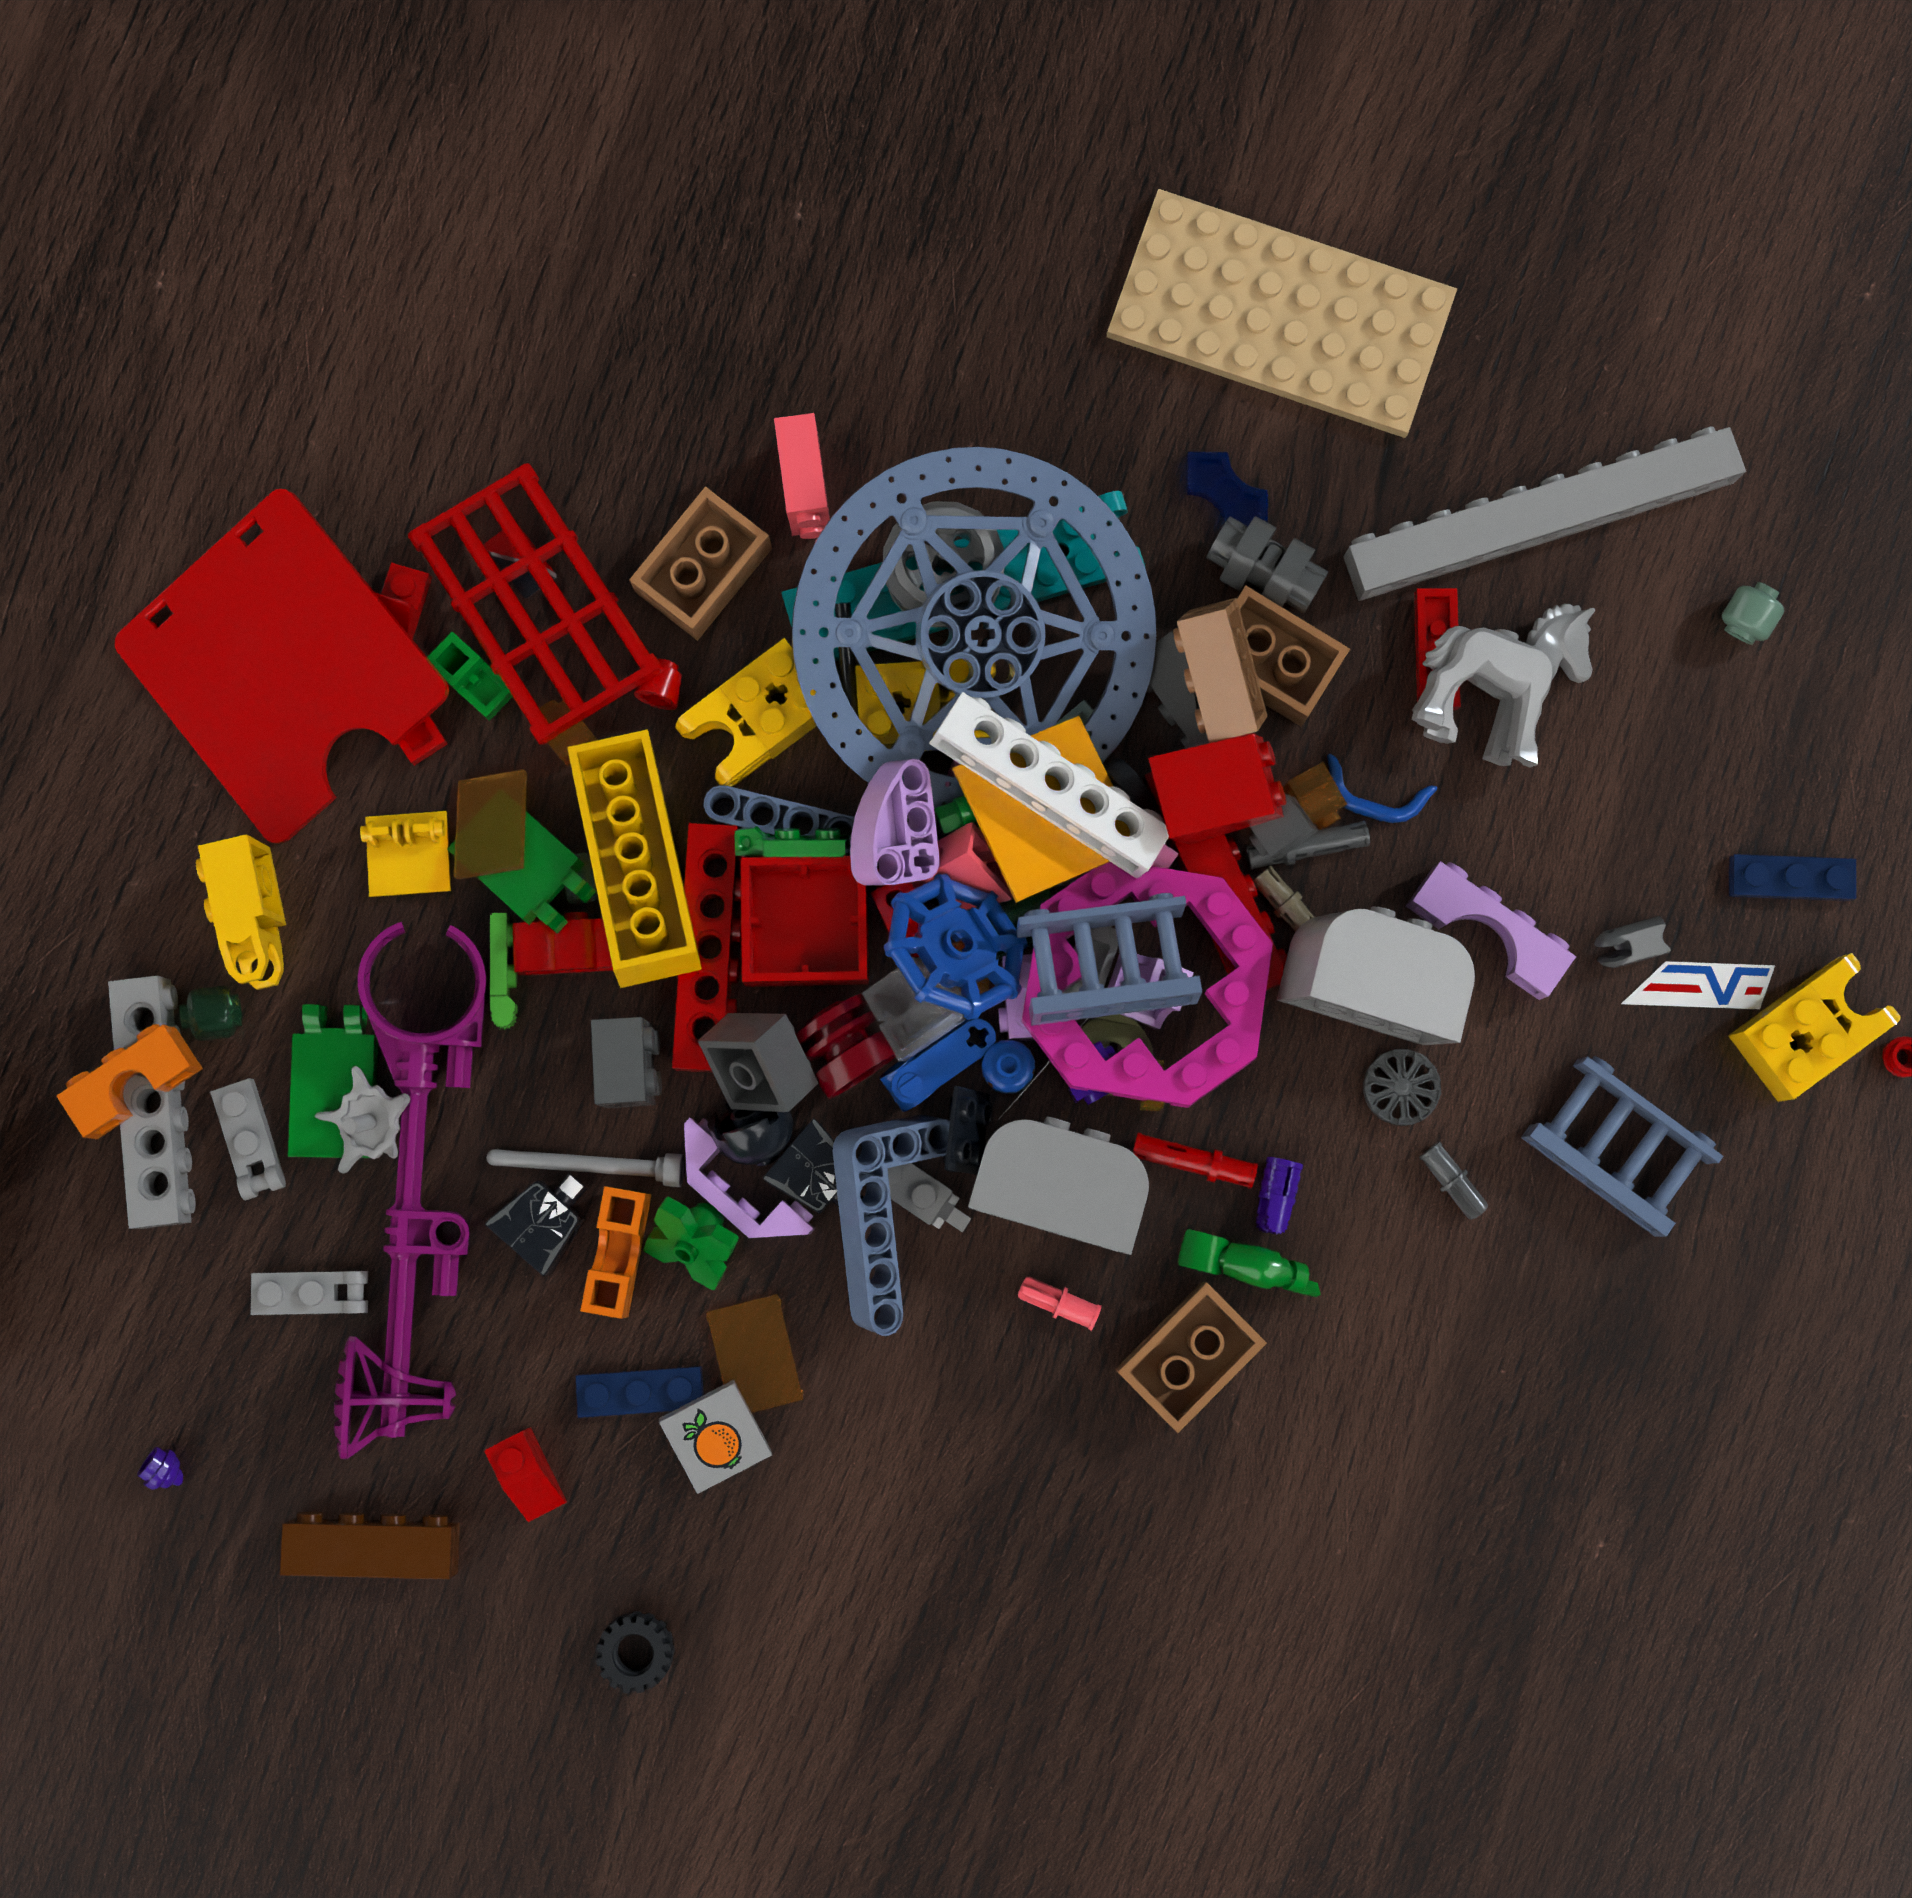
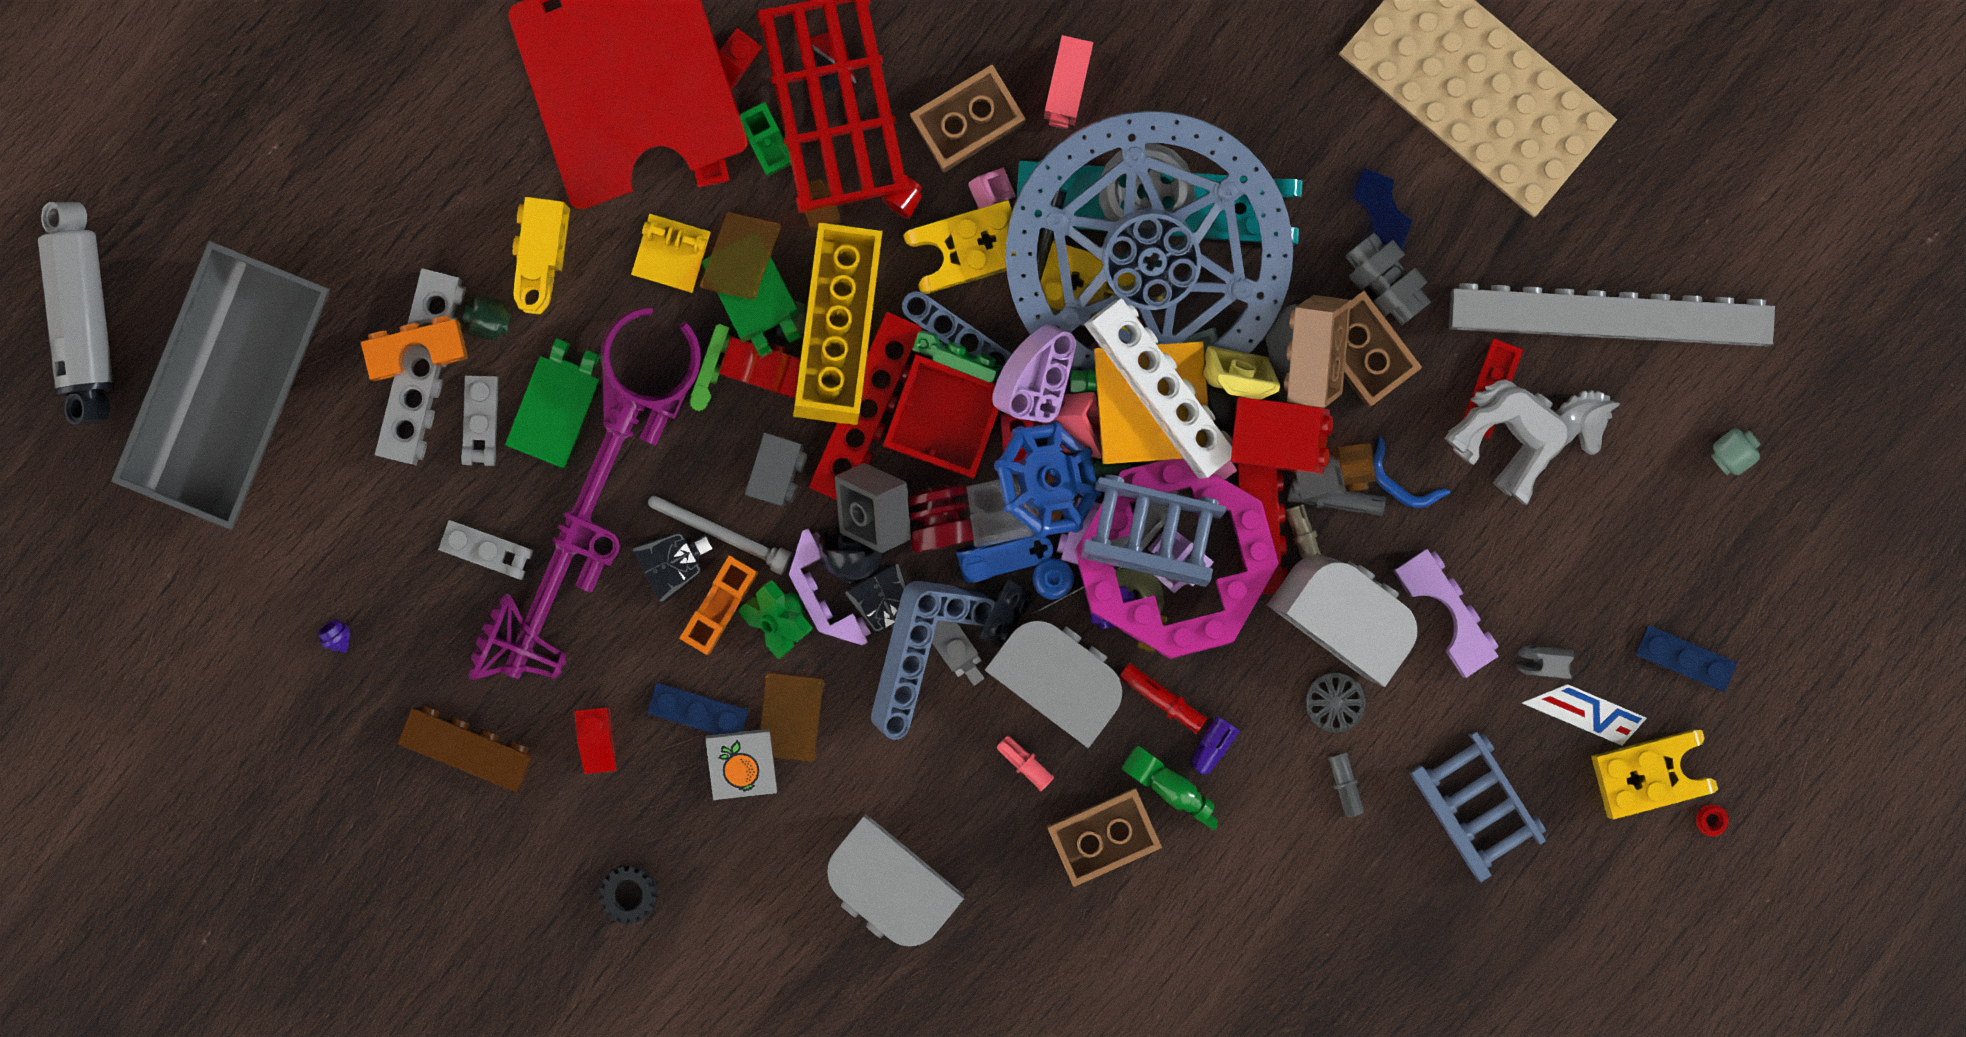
camera: 20 degrees right, 5 degrees up
(366, 1121) = (573, 442): light grey piece -> none
(759, 635) = (991, 188): none -> bright pink slope
(953, 1519) = (890, 886): none -> light grey brick
(1137, 734) = (1240, 373): none -> light yellow slope

